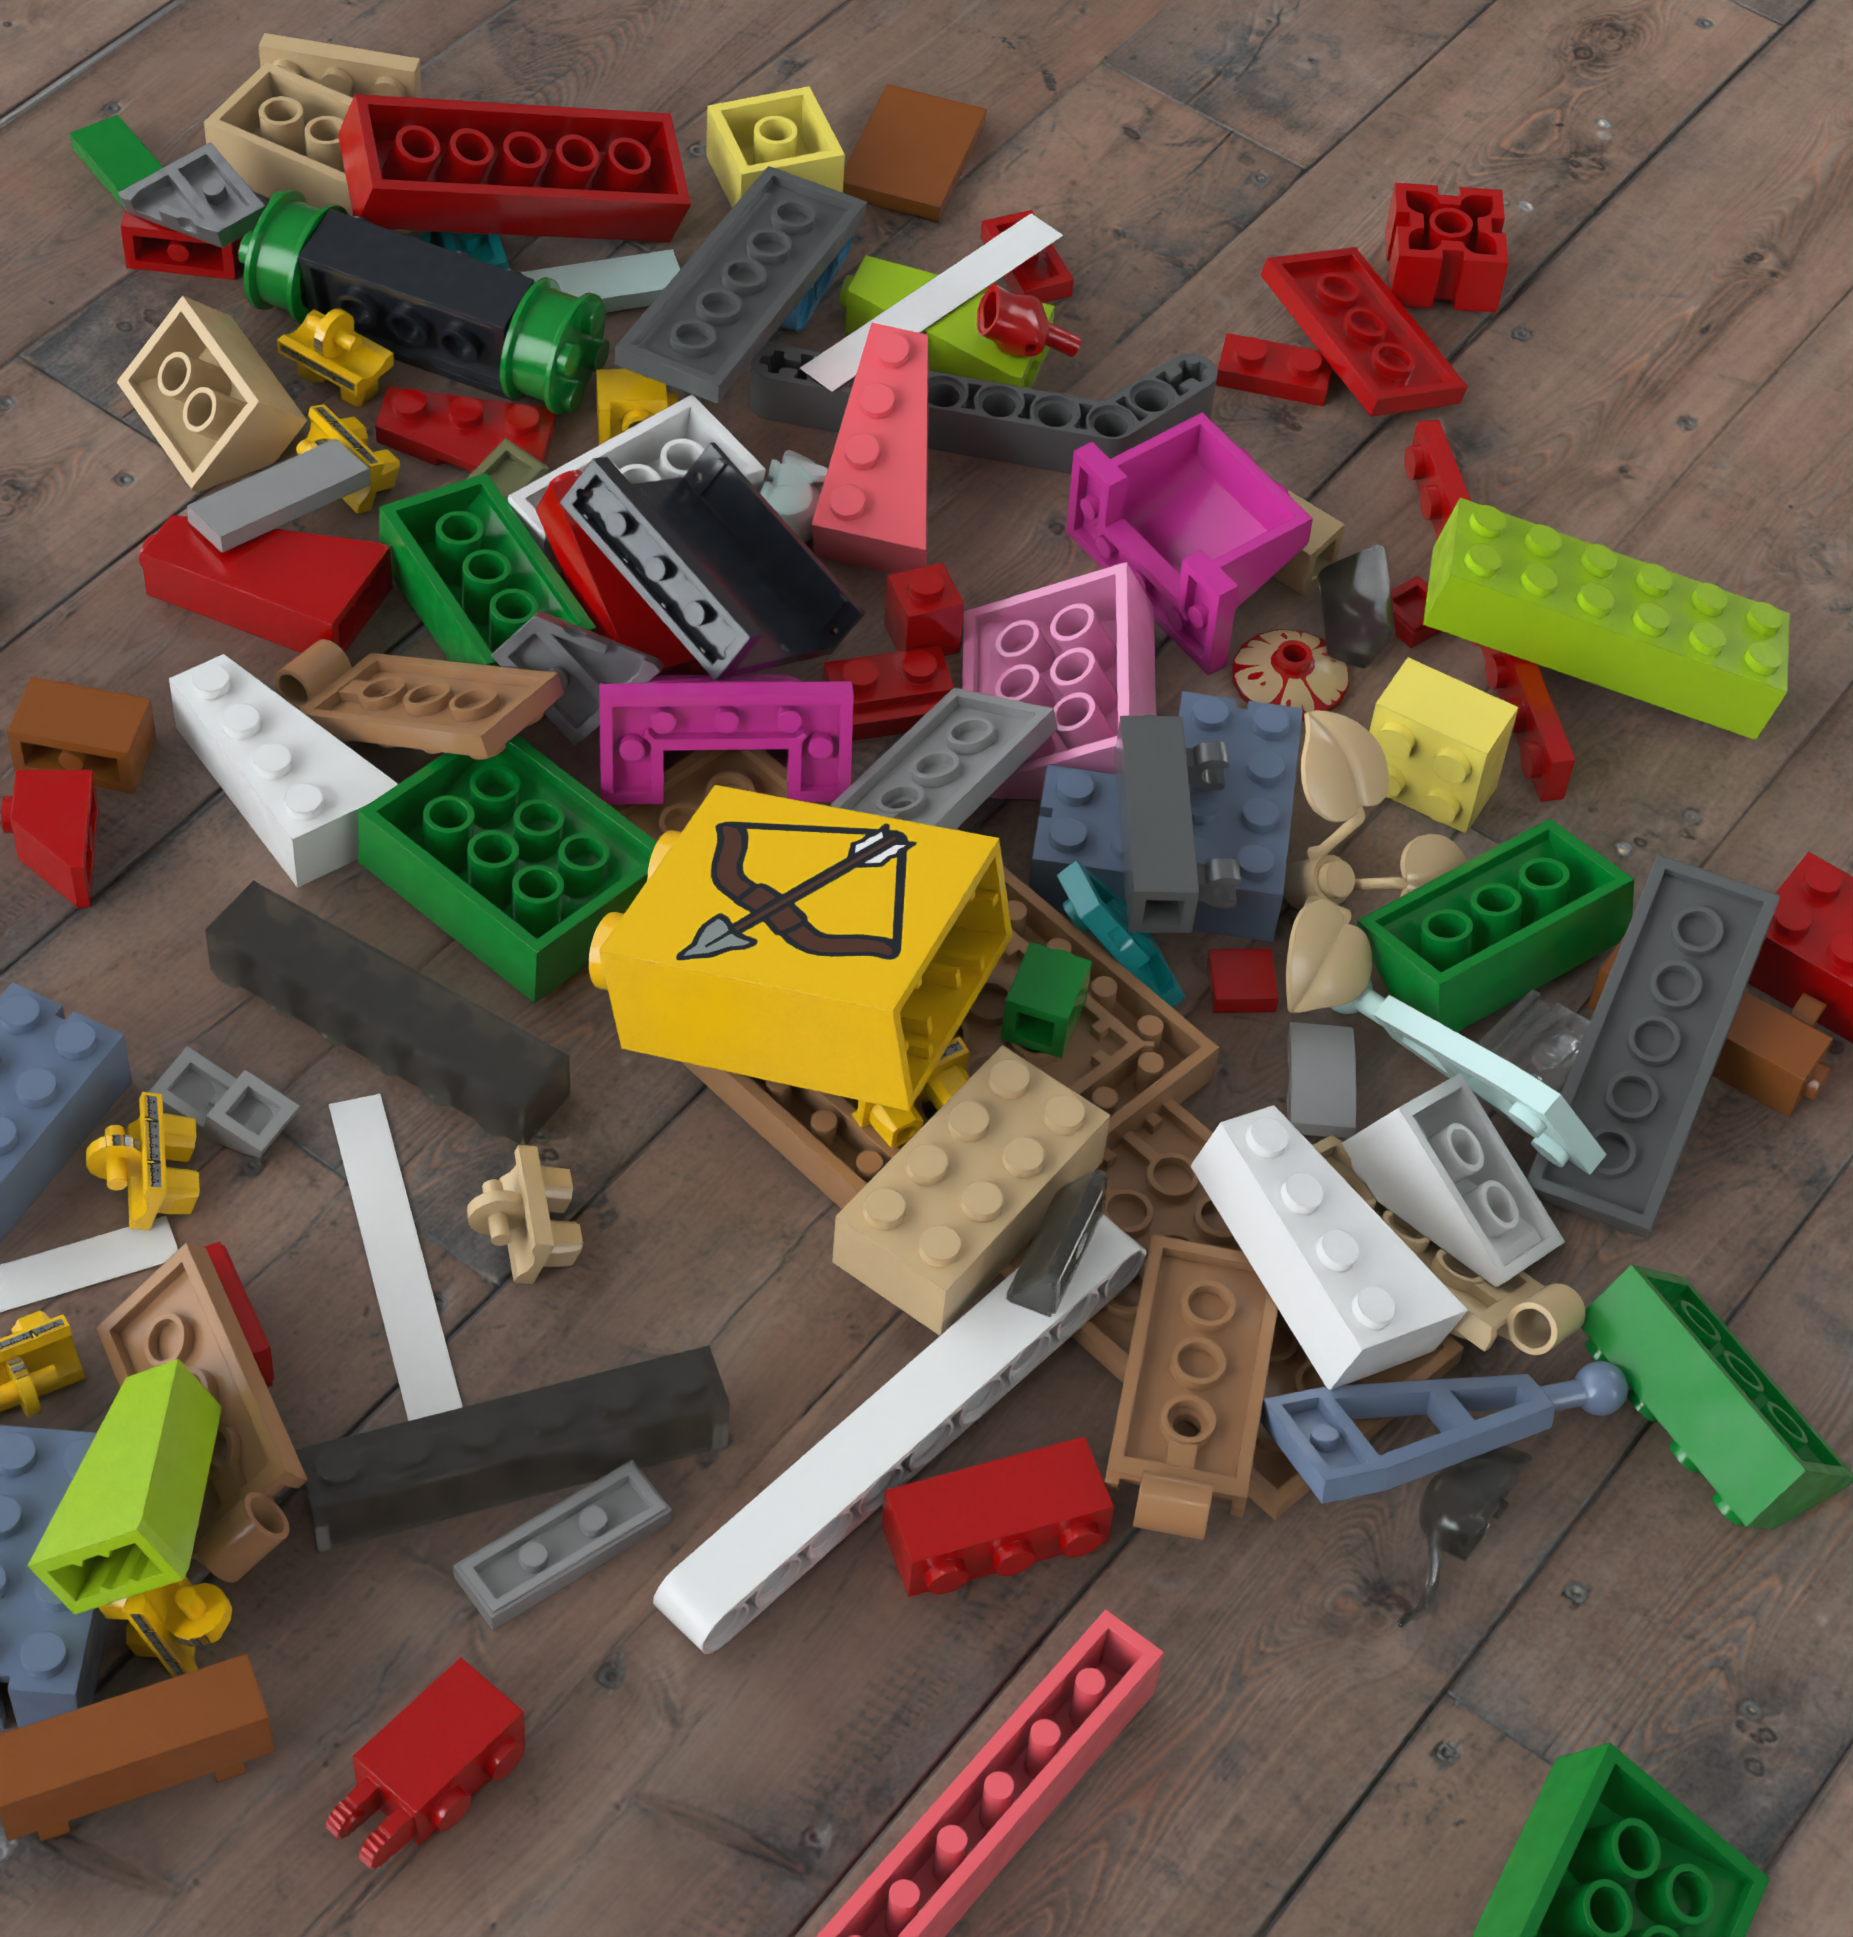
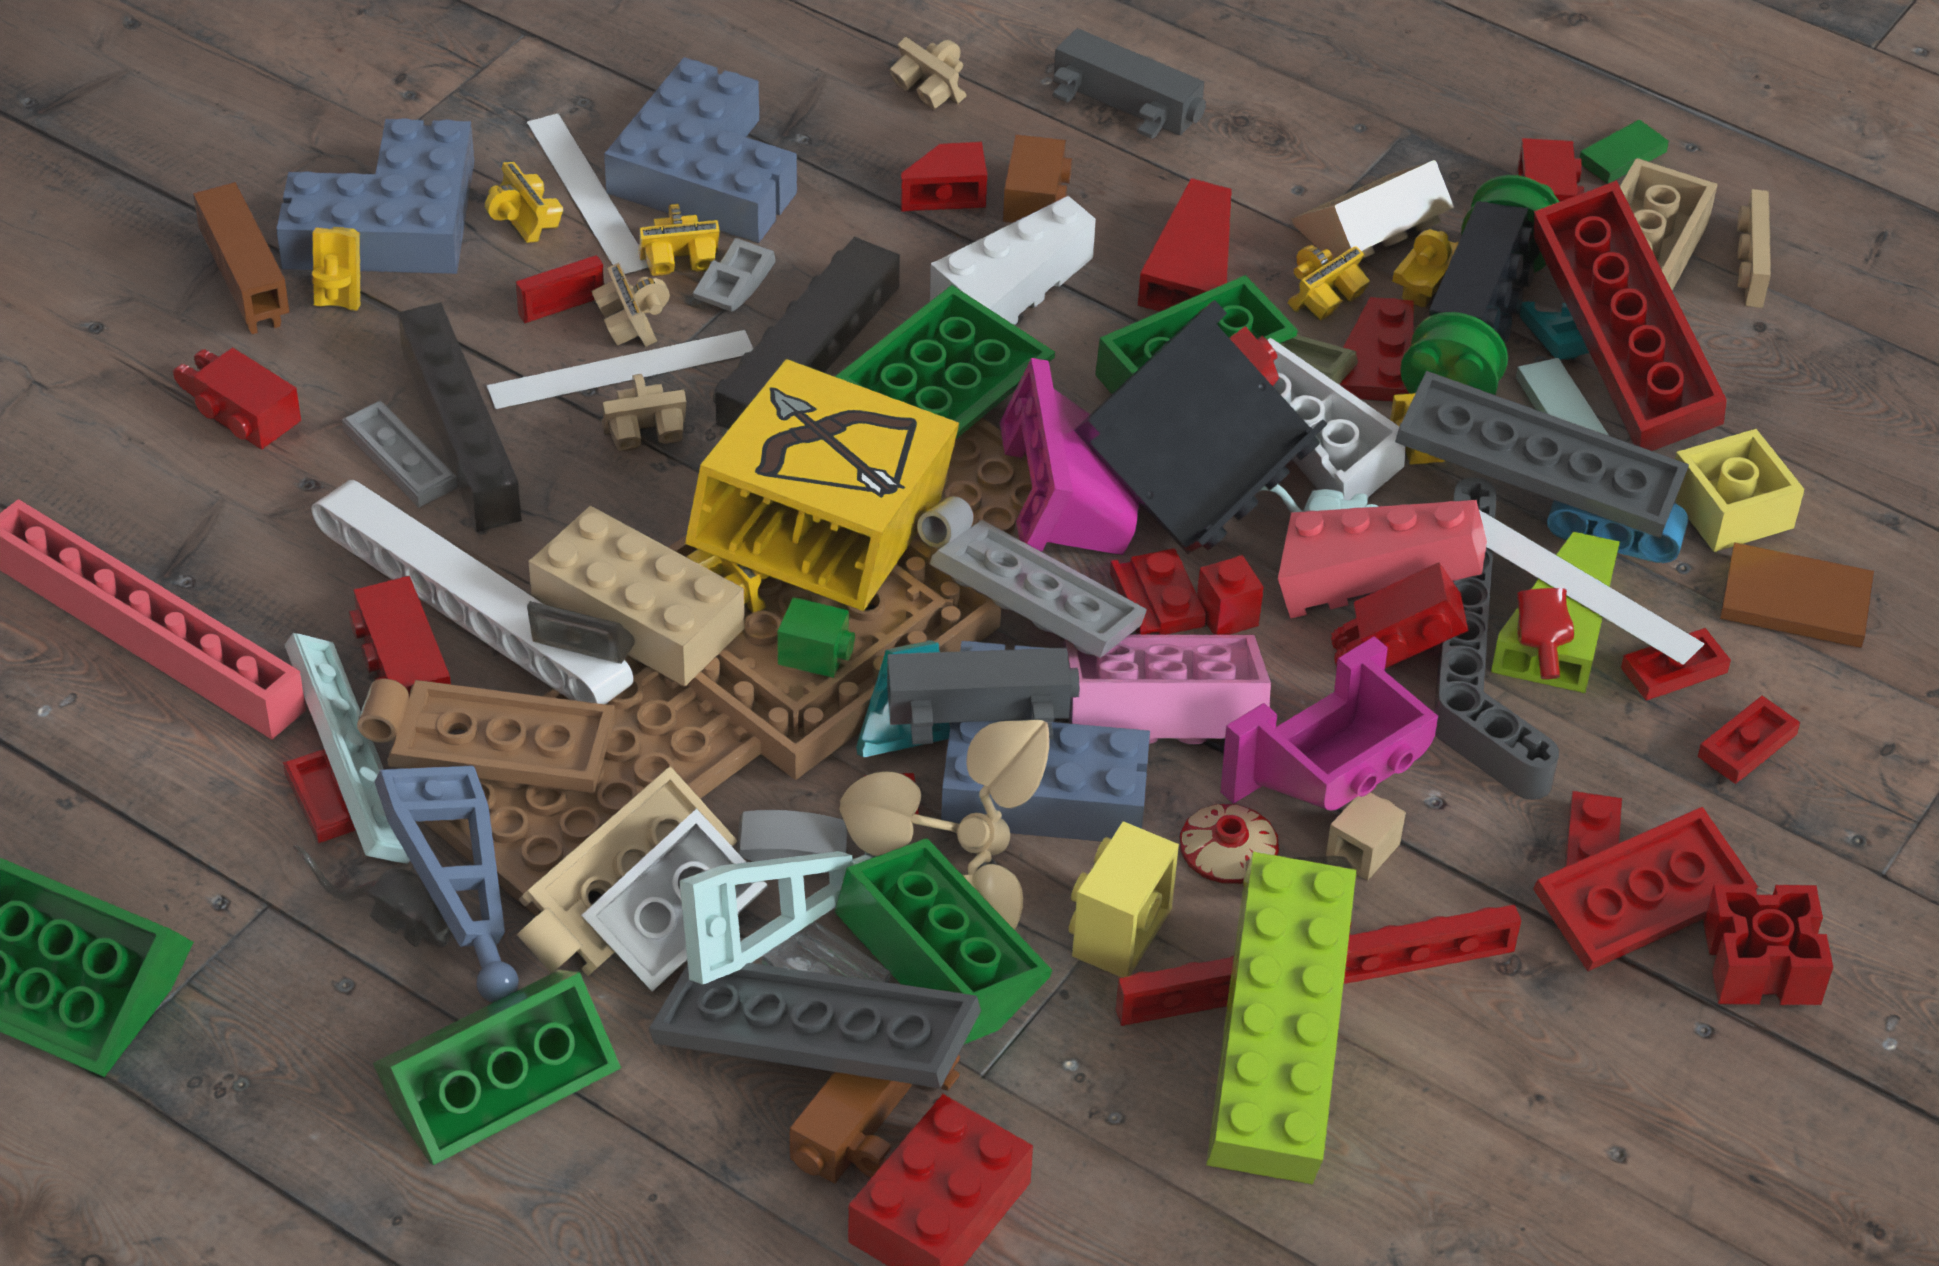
camera: 90 degrees right, 5 degrees down
(135, 1495) = (399, 221): lime slope -> none
(188, 1318) = (476, 277): medium nougat hinge -> none
(197, 198) = (1555, 159): flat silver wing -> none
(256, 1234) = (646, 297): none -> tan hips
(278, 495) = (1257, 233): light grey tile -> none
(416, 700) = (1068, 314): medium nougat hinge -> none
(582, 663) = (1098, 370): flat silver wing -> none
(992, 450) = (1406, 616): none -> red hinge
(1139, 222) = (1748, 739): none -> red plate
(1180, 1581) = (348, 751): none -> light aqua tile
(1255, 1621) = (319, 795): none -> red tile
(1322, 1251) = (581, 779): white wedge -> none

